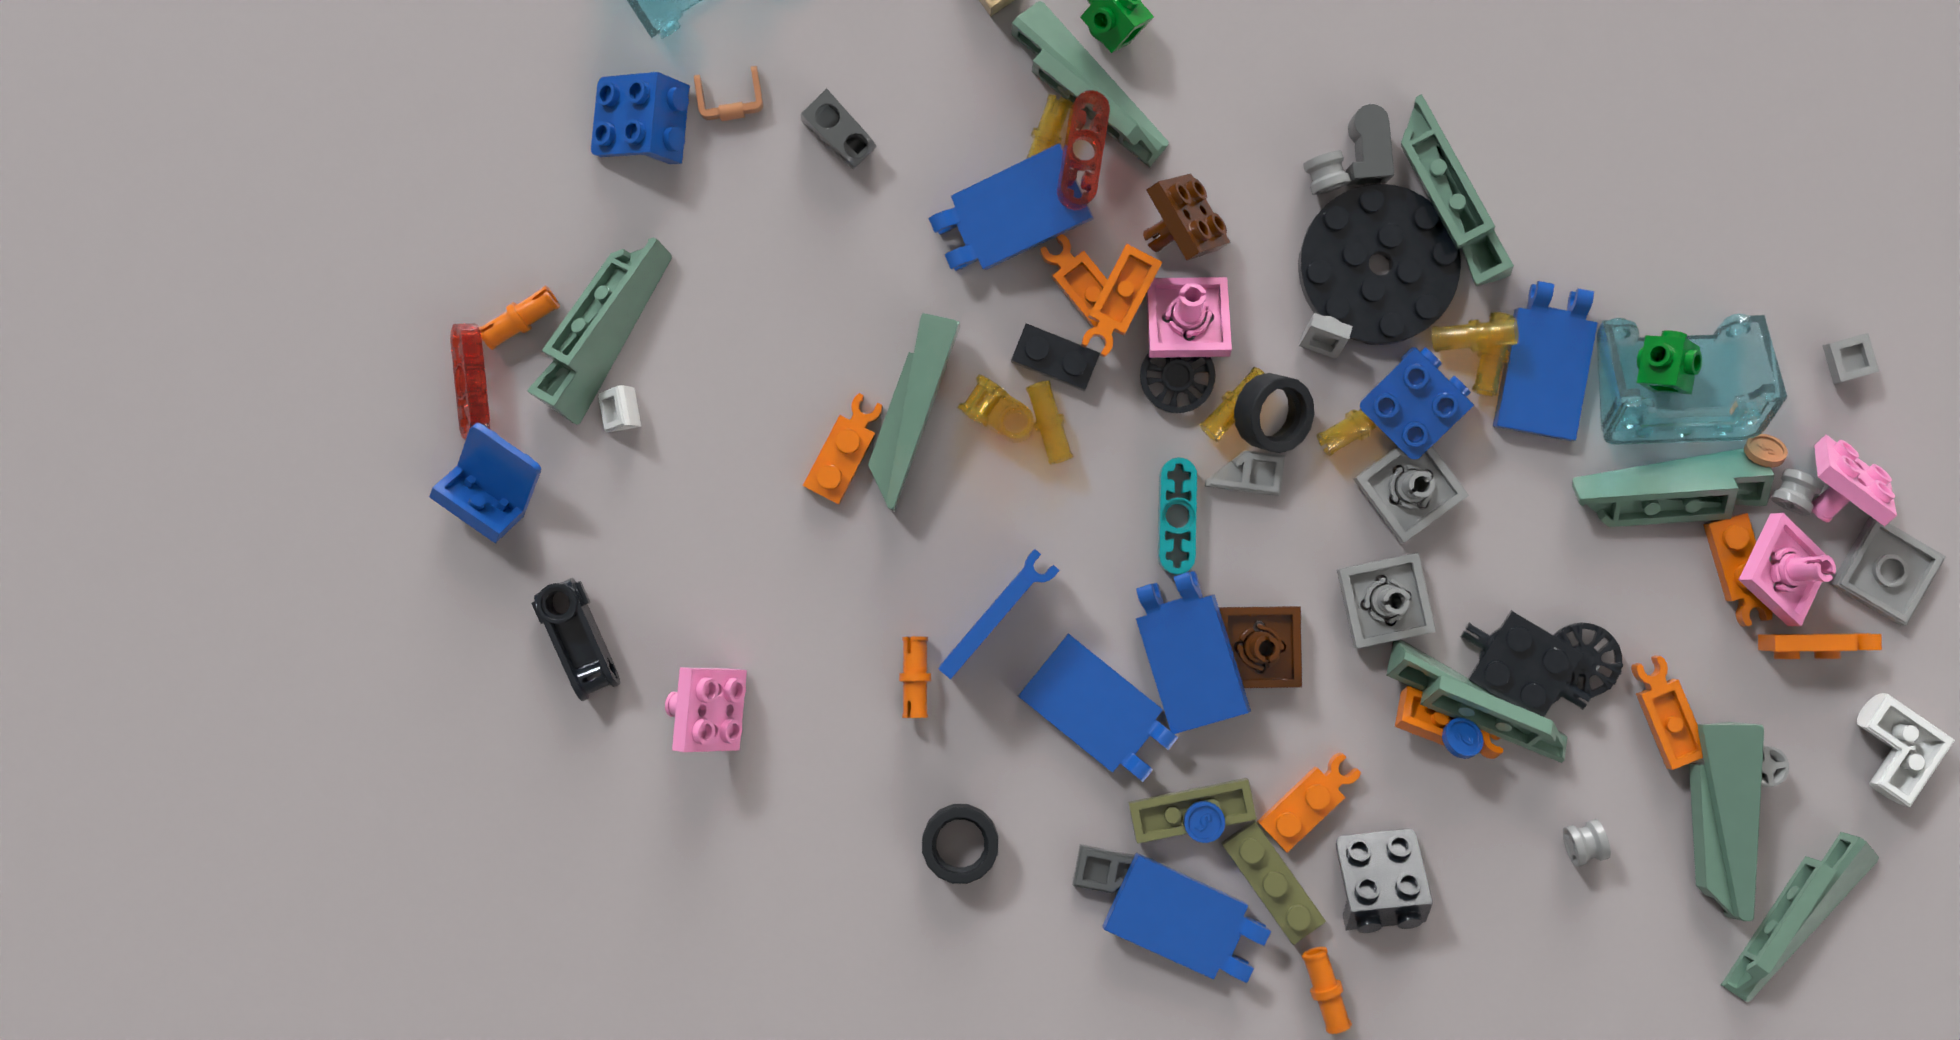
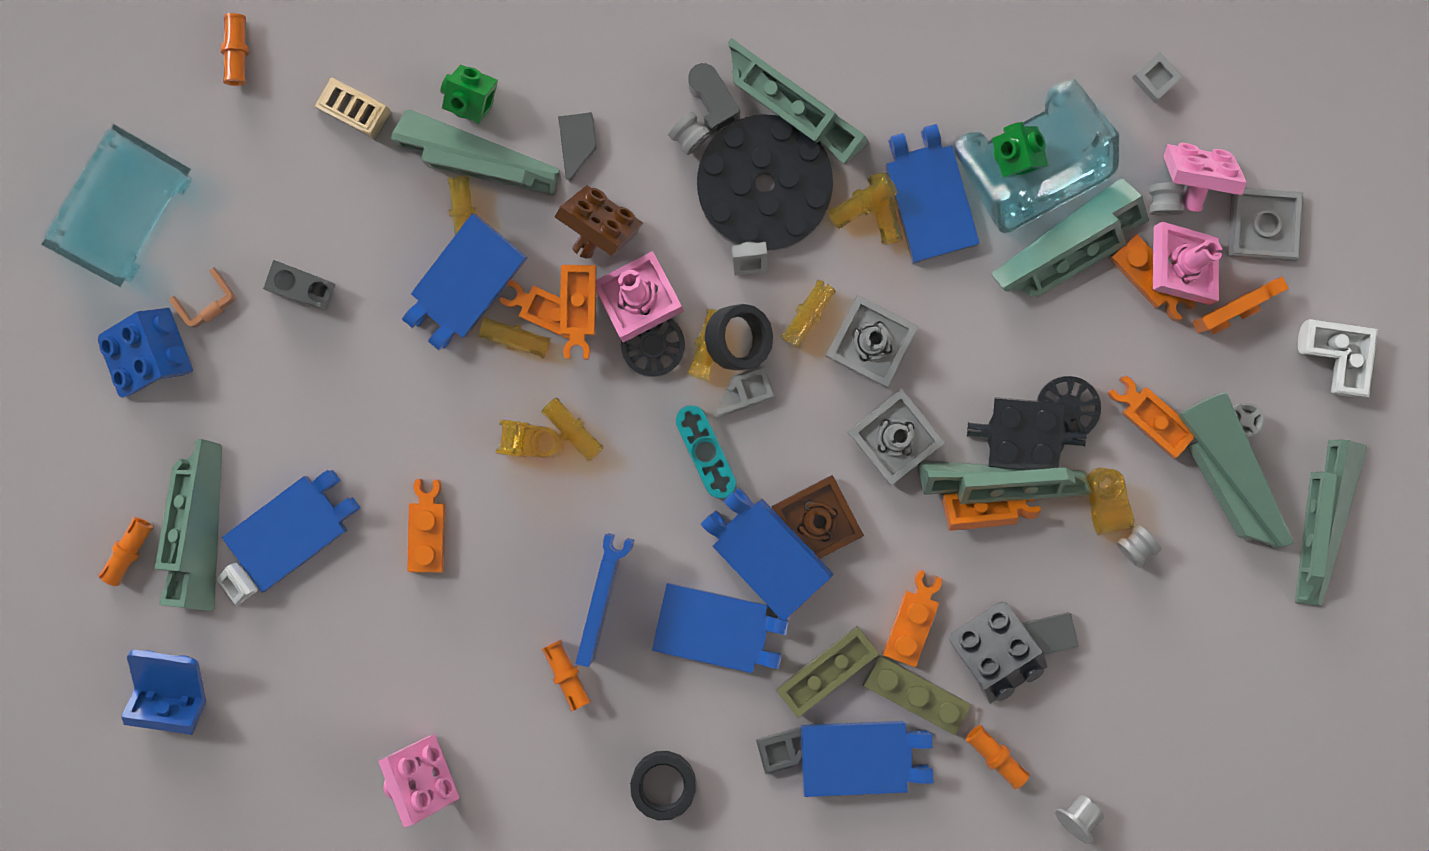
camera: 20 degrees left, 0 degrees up
(469, 376) = (109, 615): clear red beam -> none
(576, 638) = (291, 775): black piece -> none
(700, 380) = (289, 530): none -> blue tile
(912, 405) = (461, 469): sand green wedge -> none
(1036, 296) = (514, 337): none -> clear yellow pin
(1055, 357) = (552, 376): black plate -> none
(1077, 120) = (507, 230): clear red beam -> none
(1203, 122) = (577, 141): none -> dark grey tile
(1204, 822) = (840, 676): blue piece -> none
(1416, 402) = (843, 275): blue bracket -> none
(1451, 889) = (1053, 632): none -> dark grey tile
(1462, 738) = (1004, 514): blue piece -> none
(1578, 785) = (1109, 506): none -> clear yellow piece
(1766, 450) = (1127, 179): nougat piece -> none

